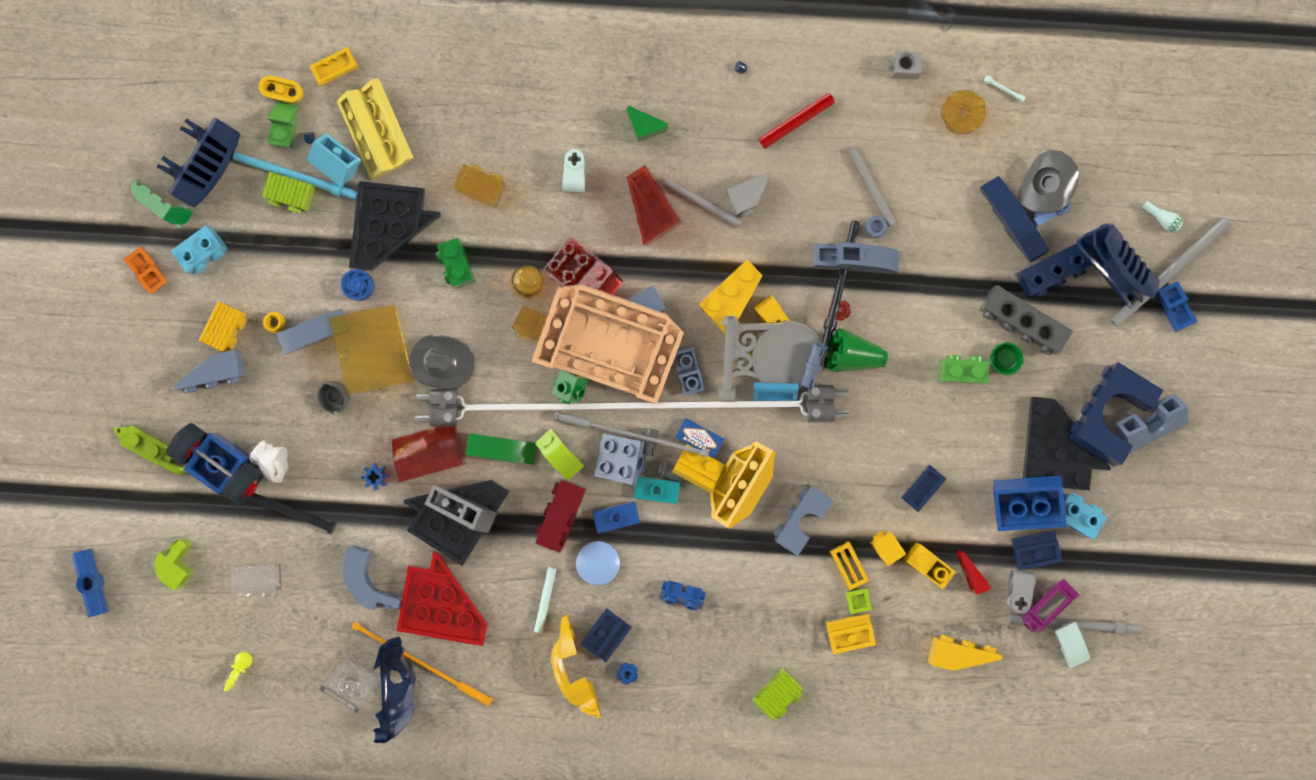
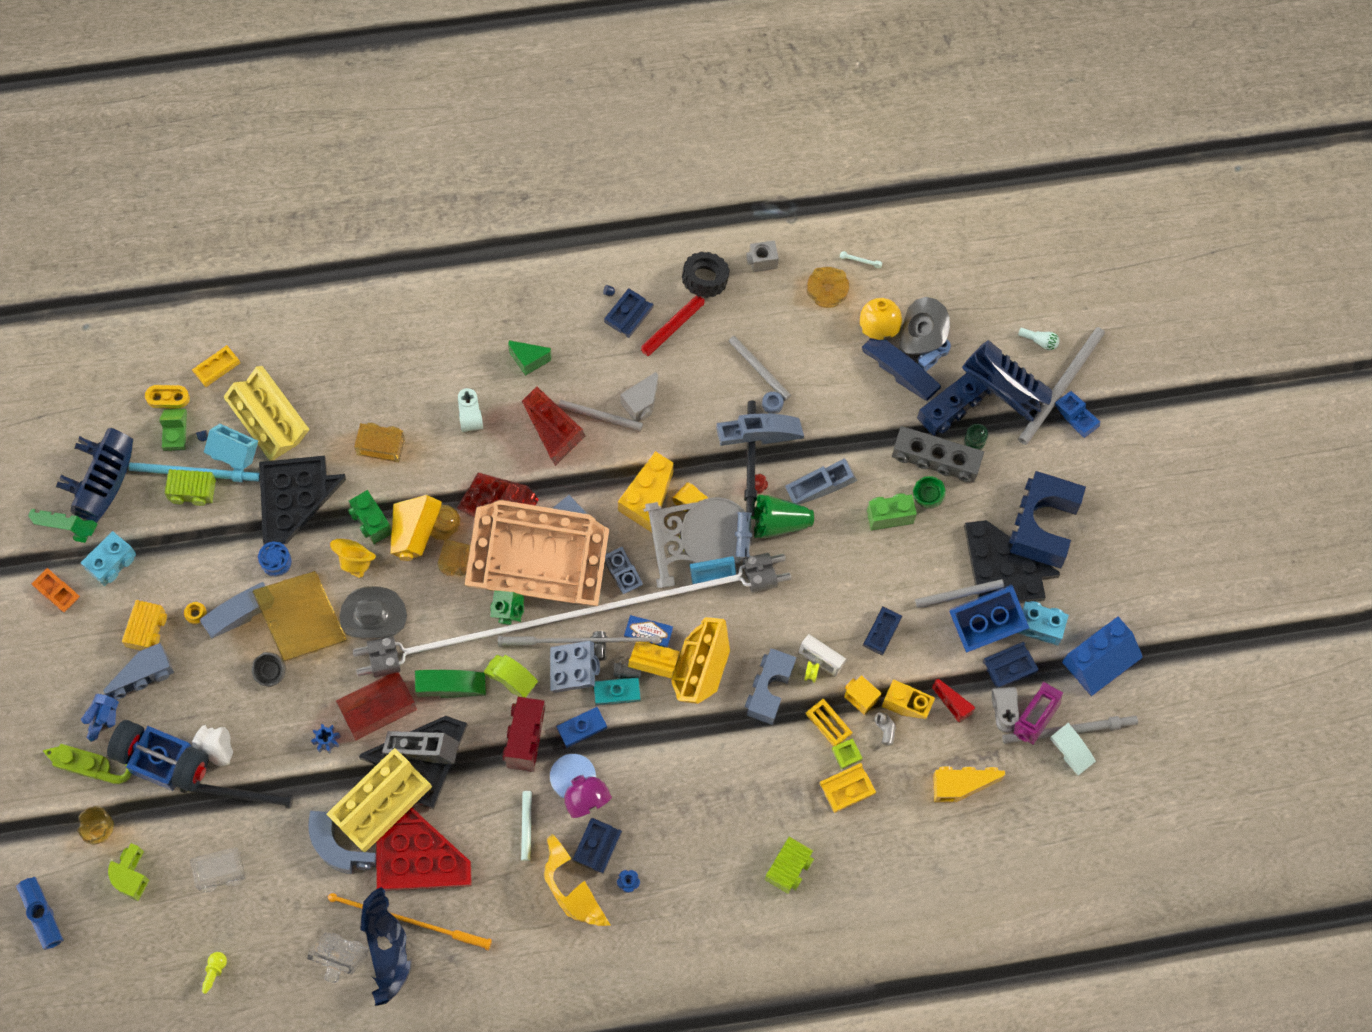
camera: 20 degrees left, 20 degrees down
(150, 513) = (95, 825): none -> clear yellow hair
(169, 405) = (100, 713): none -> blue rock
(412, 552) = (379, 800): none -> light yellow slope
(432, 298) = (352, 556): none -> yellow piece
(494, 284) = (412, 526): none -> yellow slope
(604, 592) = (585, 794): none -> magenta cylinder
(690, 598) = (656, 789): blue hinge -> none
(755, 98) = (628, 313): none -> dark blue plate
(845, 514) = (811, 671): none -> neon yellow bush
(854, 62) = (702, 287): none -> black tyre
(859, 499) = (822, 654): none -> white brick
(902, 323) = (821, 482): none -> sand blue slope
(903, 582) = (888, 726): none -> light grey arm
(1007, 162) = (880, 318): none -> yellow cylinder
(1010, 469) = (960, 593): none -> light grey bar
(1073, 310) = (977, 433): none -> clear green wheel
(1128, 560) = (1103, 656): none -> blue slope
(1168, 416) = (1099, 512): sand blue arch -> none

